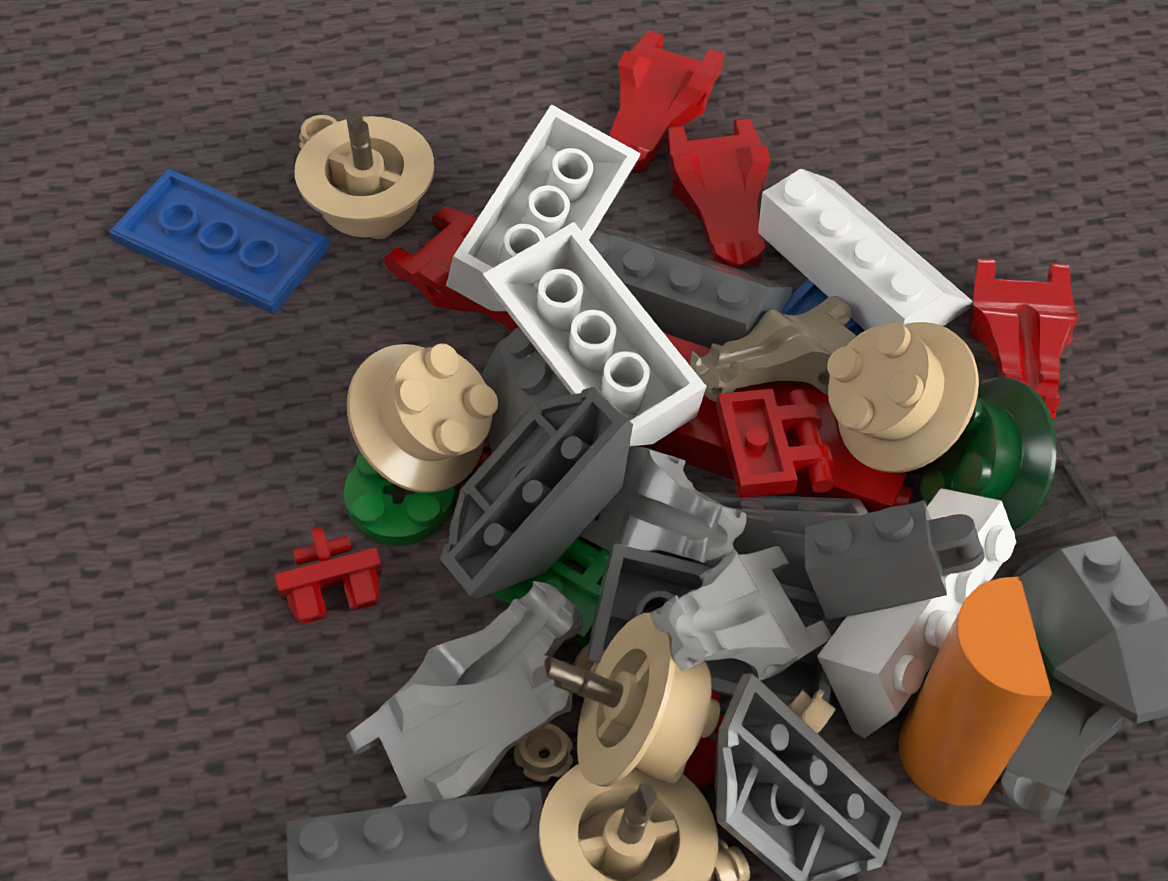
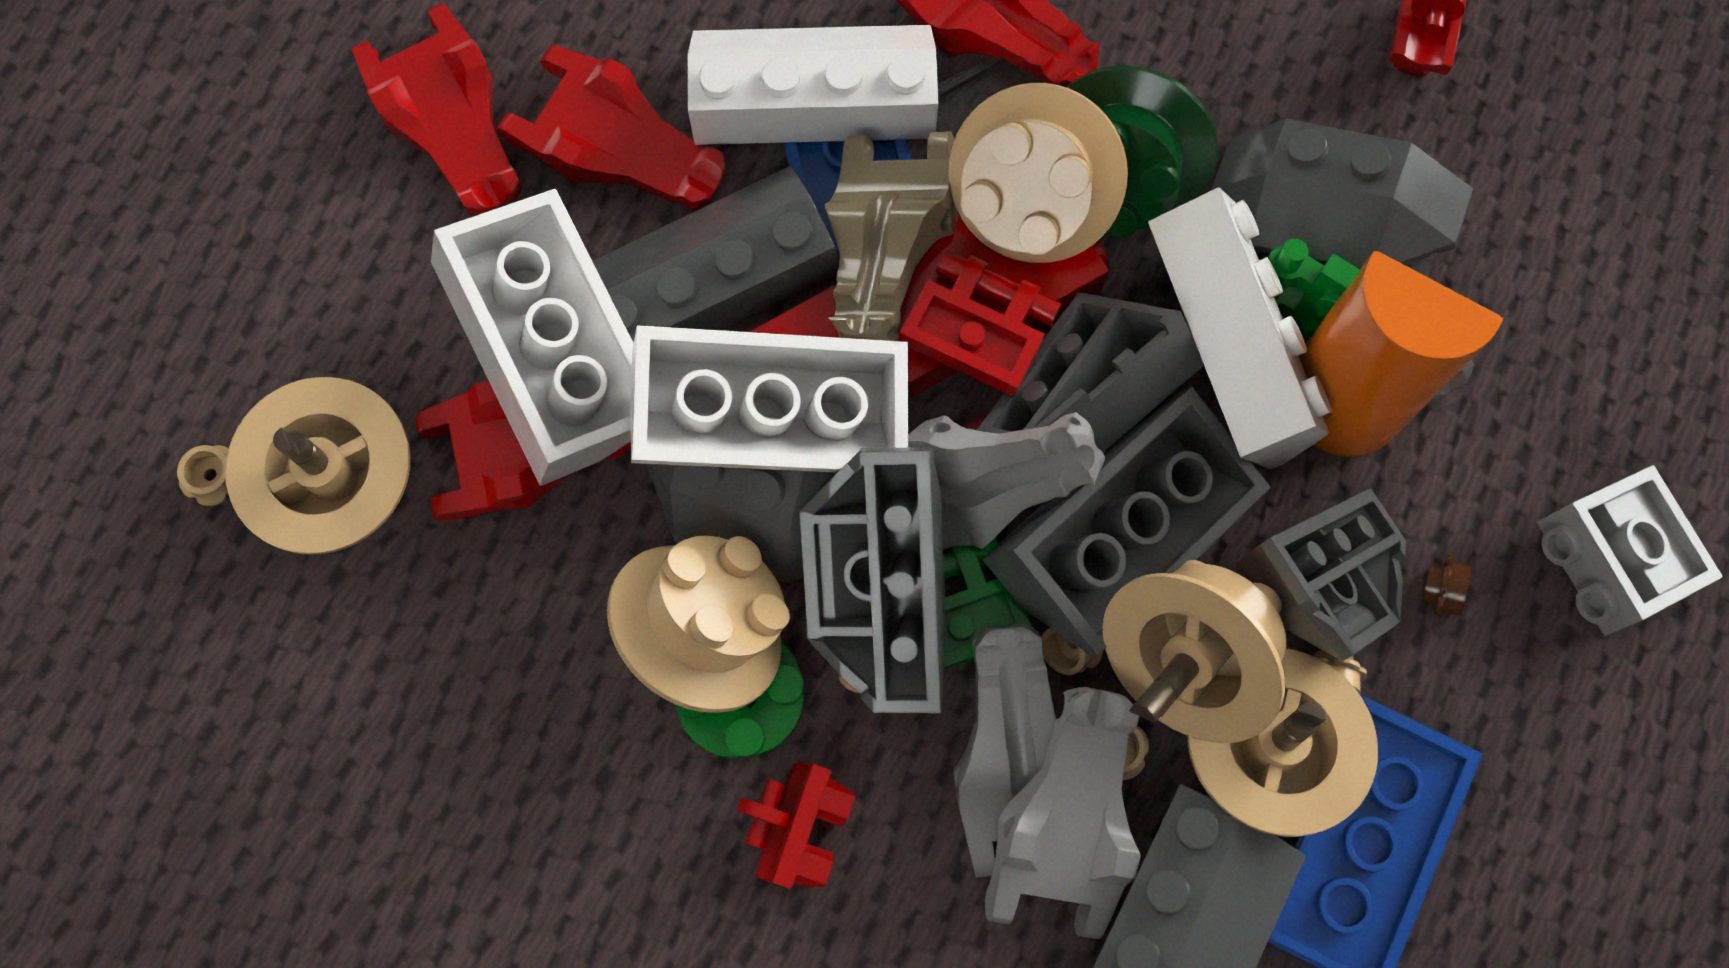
camera: 55 degrees left, 20 degrees up
(220, 240) = (261, 670): blue tile -> none
(740, 616) = (1191, 497): light grey animal -> none
(812, 710) = (1273, 505): tan plate -> none
(887, 558) = (1217, 327): dark grey brick -> none

